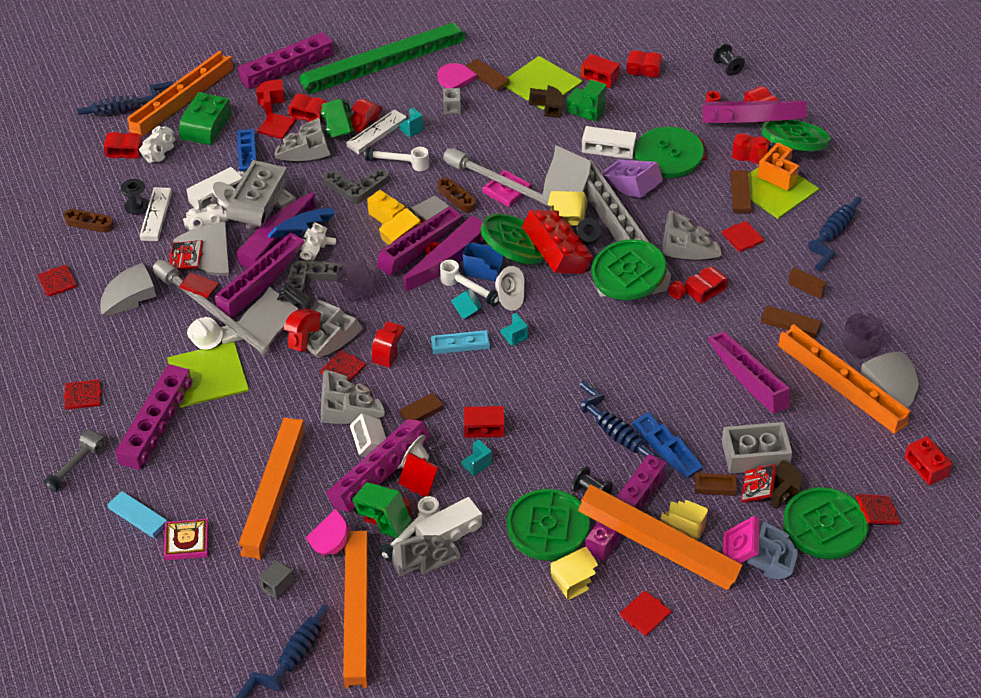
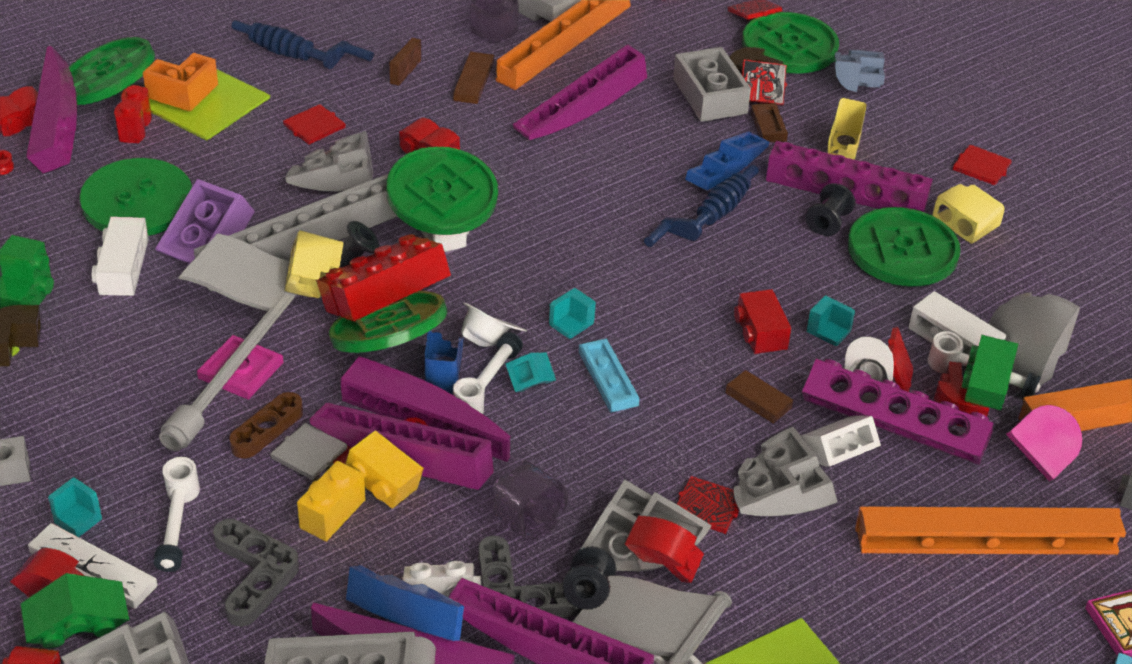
camera: 105 degrees left, 5 degrees down
(385, 344) = (661, 437): red brick -> none
(659, 537) = (899, 135): orange tile -> none
(740, 191) = (224, 124): reddish brown tile -> none
(742, 540) = (863, 83): dark pink tile -> none

